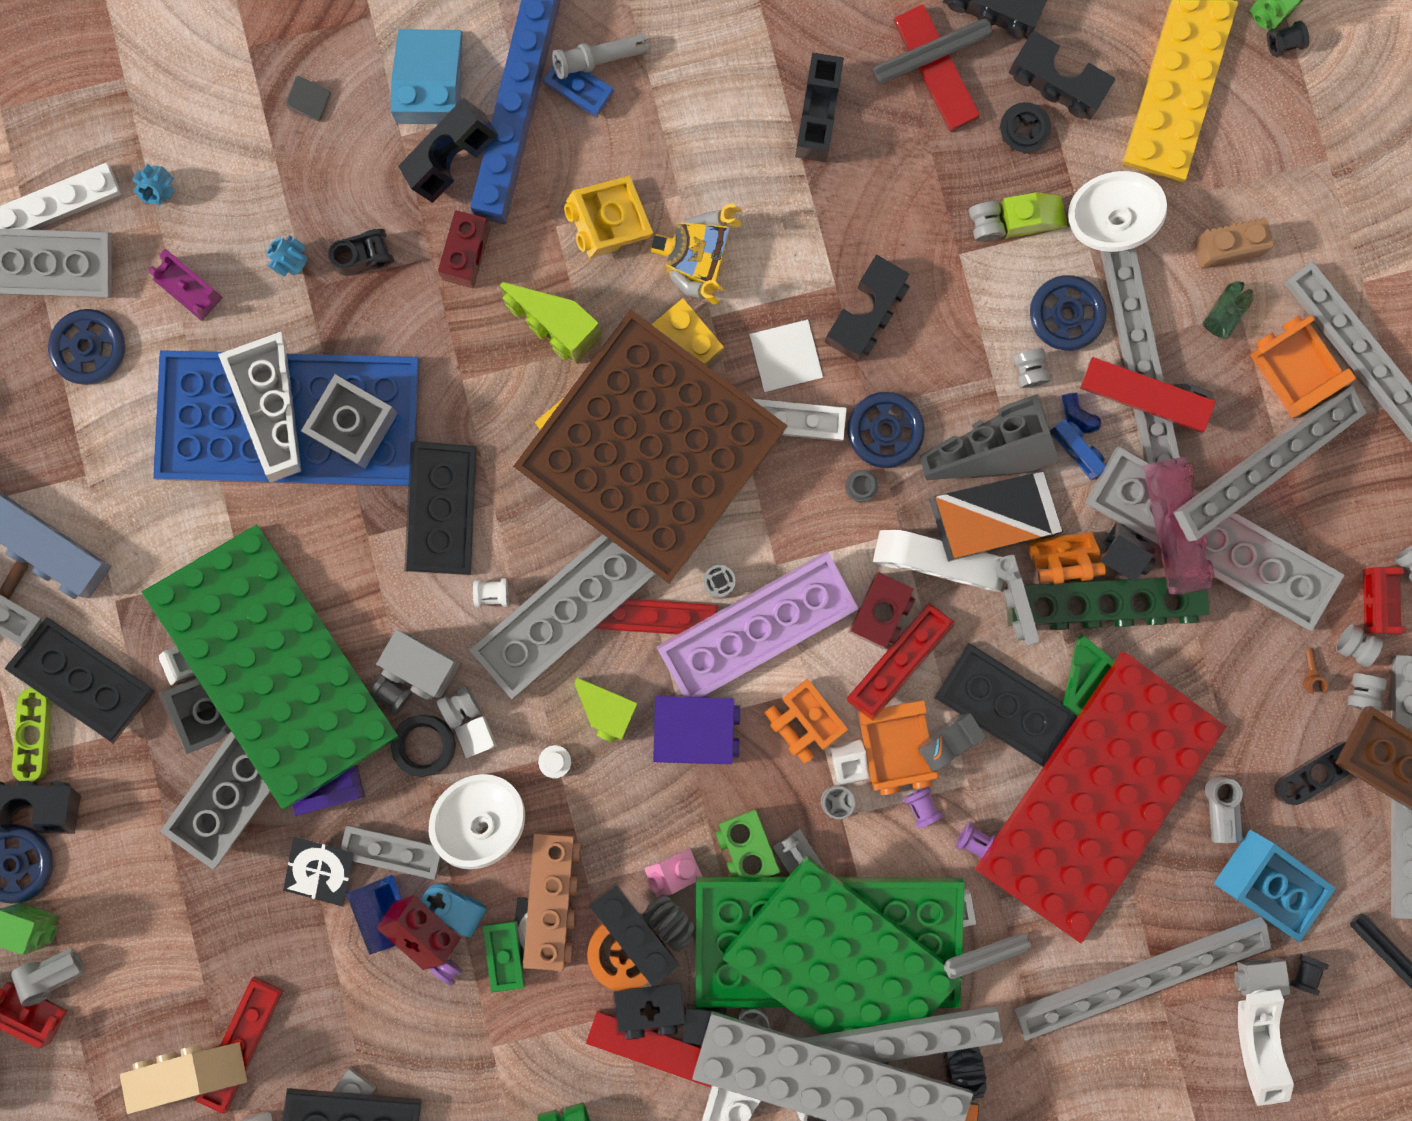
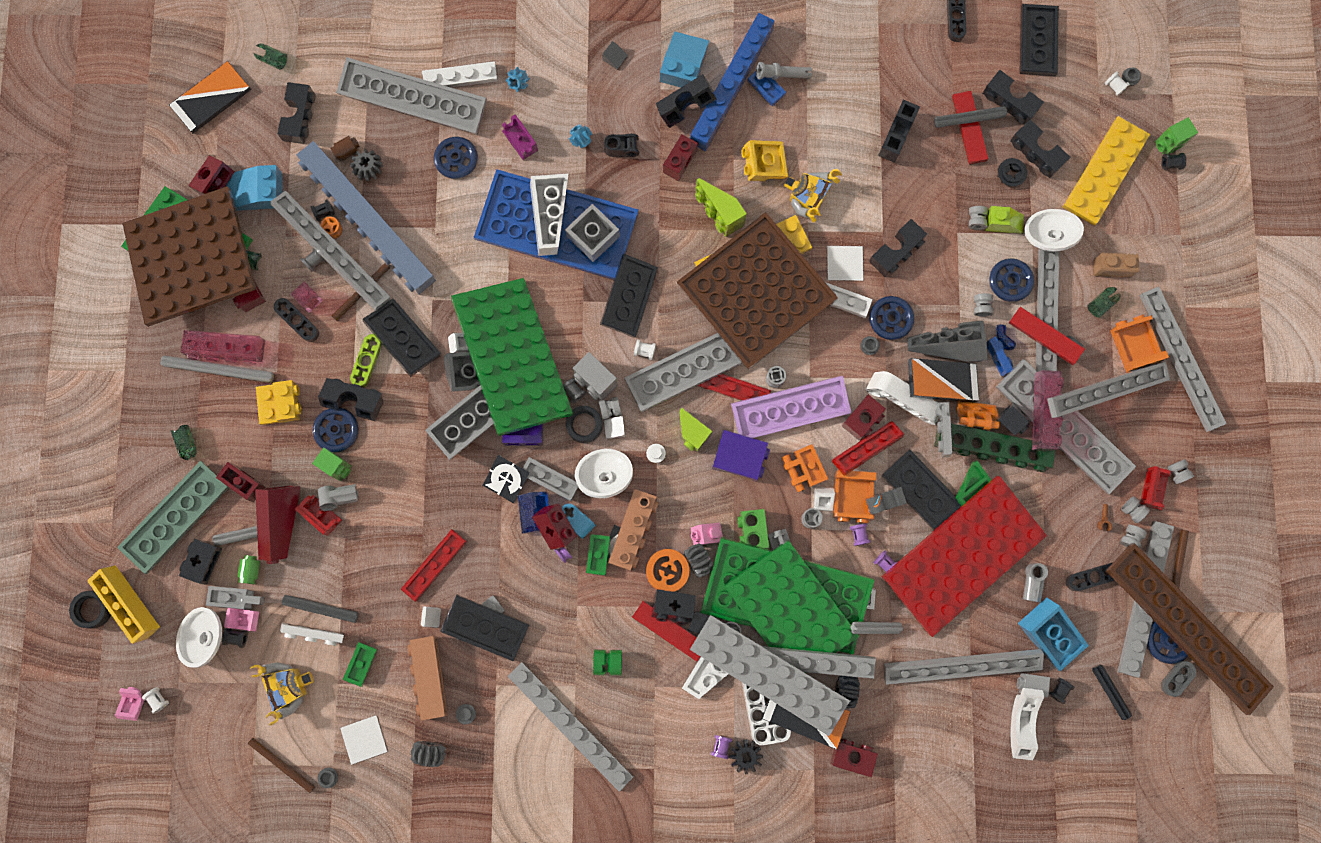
camera: 15 degrees right, 5 degrees down
(182, 1077) = (398, 571): tan wedge -> none
(634, 934) = (678, 558): black arch -> none

